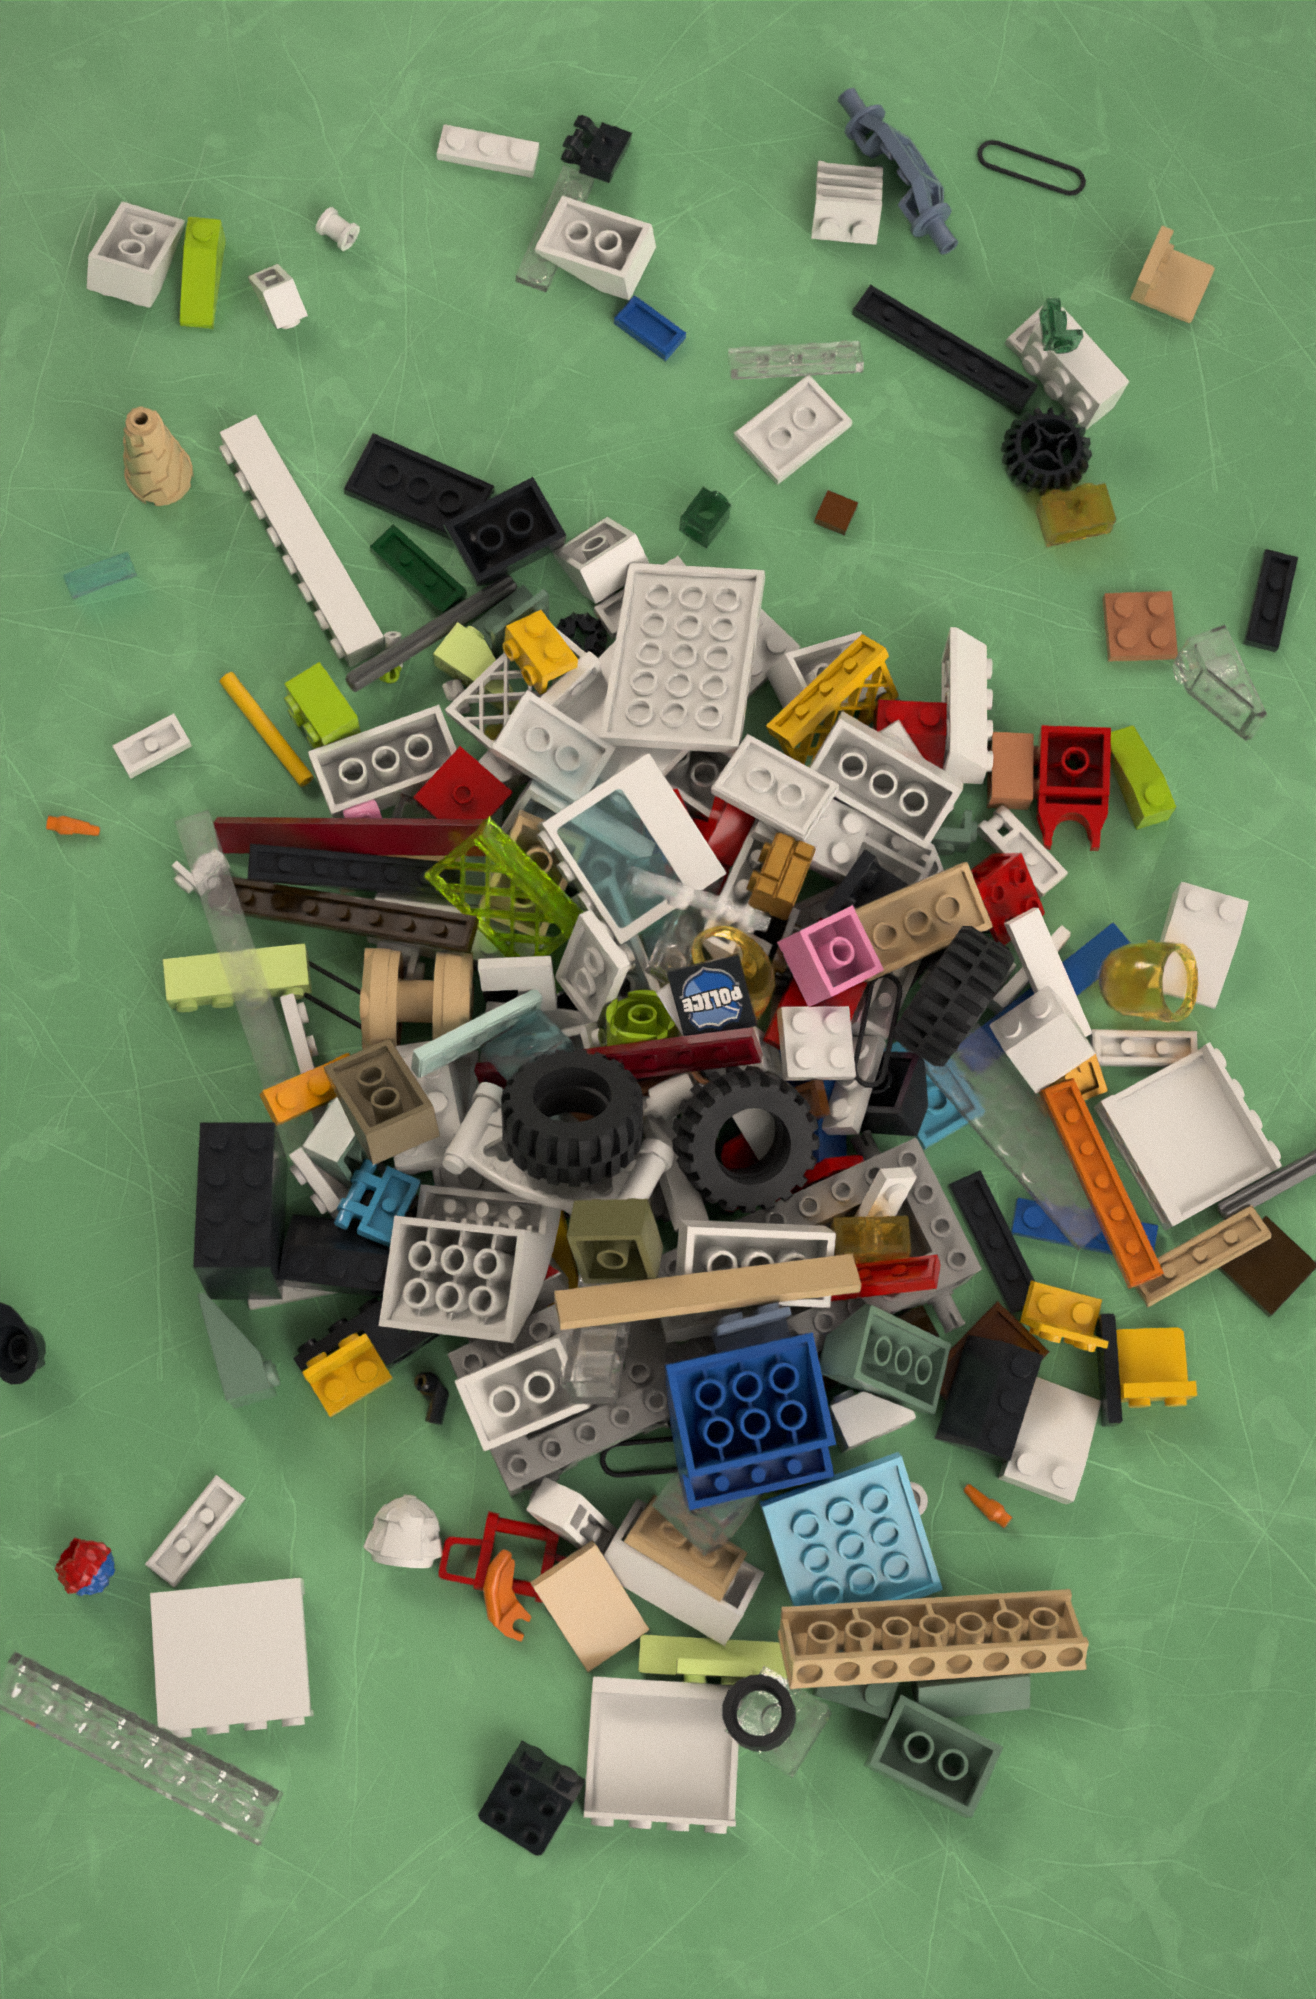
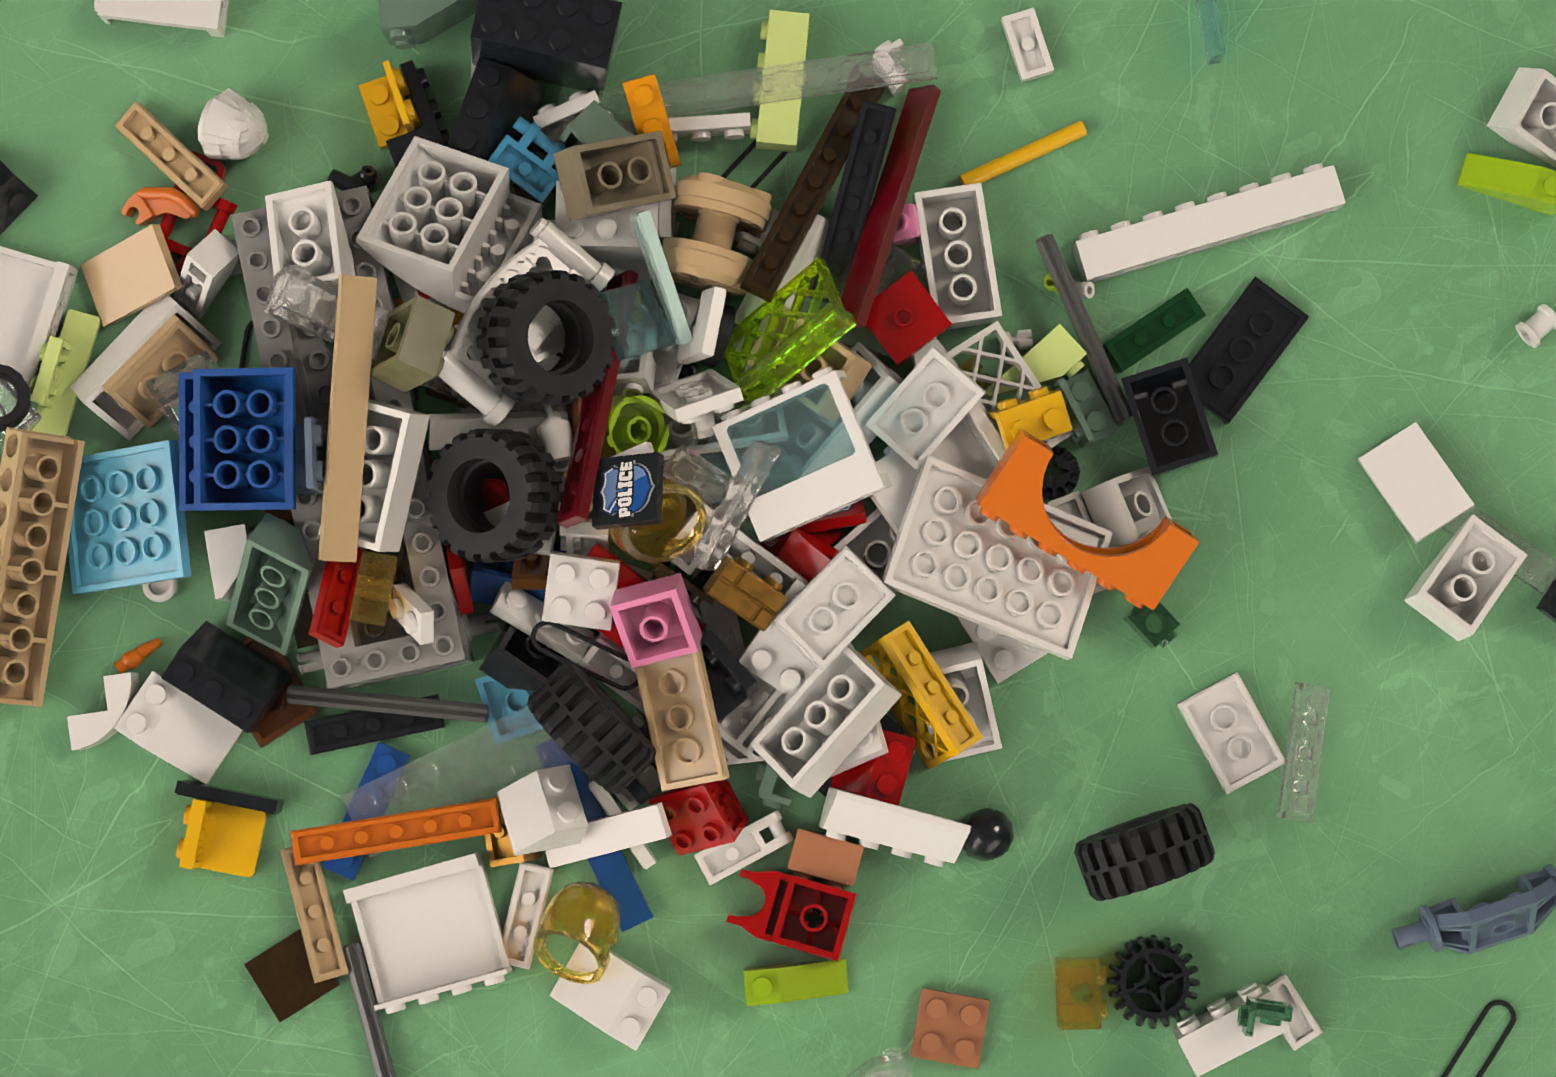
camera: 110 degrees right, 10 degrees up
(154, 460) = (1314, 99): tan cone -> none
(278, 296) = (1475, 251): white slope -> none
(320, 707) = (1022, 206): lime brick -> none
(448, 1597) = (171, 156): none -> tan tile
(514, 307) = (1416, 482): none -> white tile
(620, 642) = (1137, 569): none -> orange arch
(650, 328) = (1370, 615): blue tile -> none
(836, 512) = (1132, 754): reddish brown tile -> none
(847, 203) = (1456, 844): white plate -> none
(932, 467) = (1144, 852): none -> black tyre
(938, 621) = (989, 834): none -> black hair
(944, 349) = (1288, 908): black tile -> none
(973, 1226) = (387, 703): none -> dark grey axle
(1062, 1313) = (282, 765): yellow bracket -> none
(1073, 1527) = (97, 727): none -> white brick

